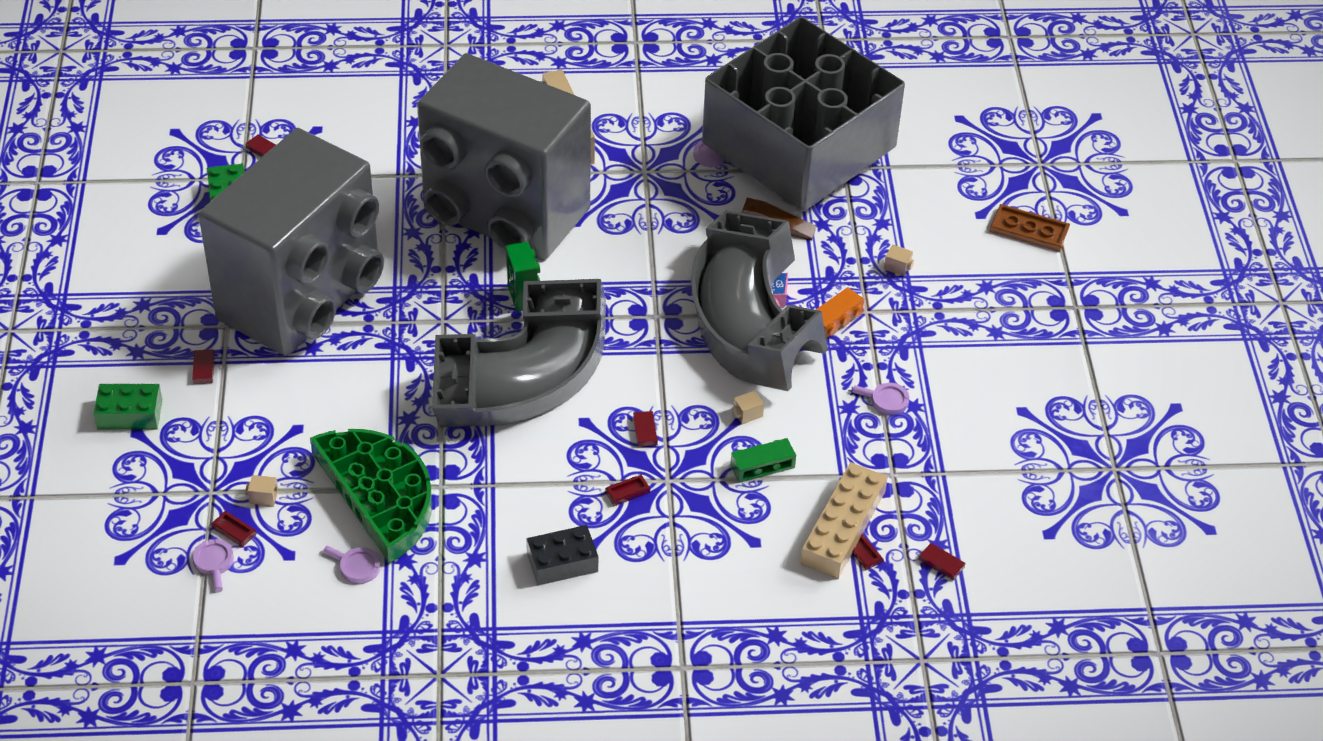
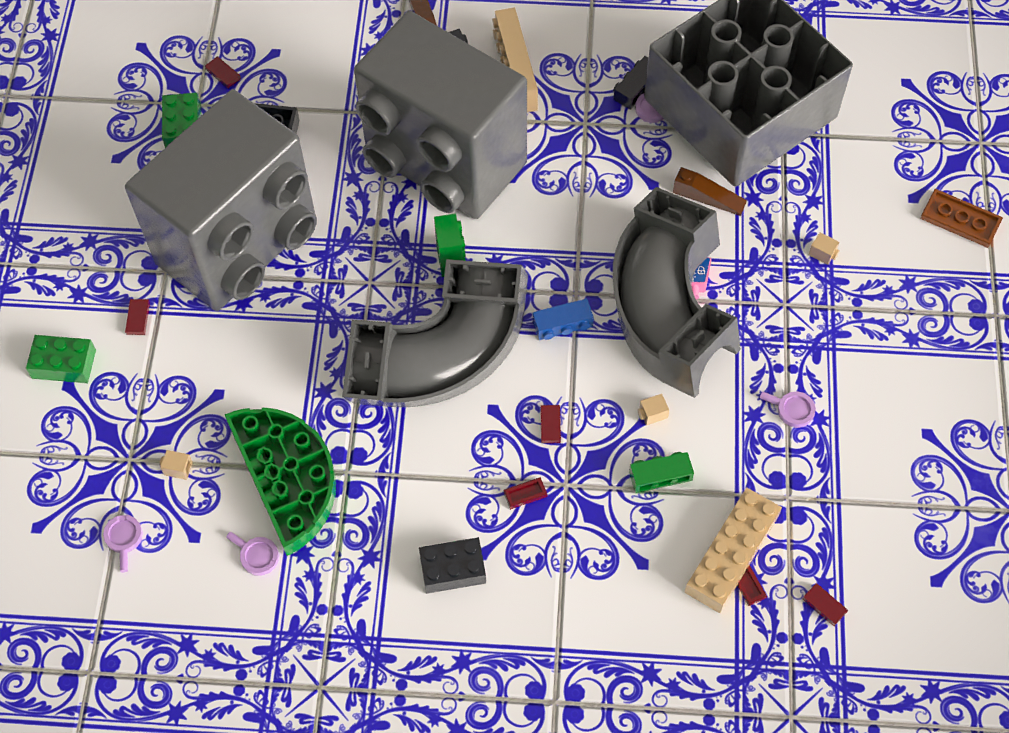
camera: 10 degrees right, 15 degrees up
(234, 528) = (145, 503): dark red tile -> none
(645, 337) = (563, 319): none -> blue brick
(688, 134) = (632, 84): none -> black brick
(841, 310) = (756, 305): orange brick -> none

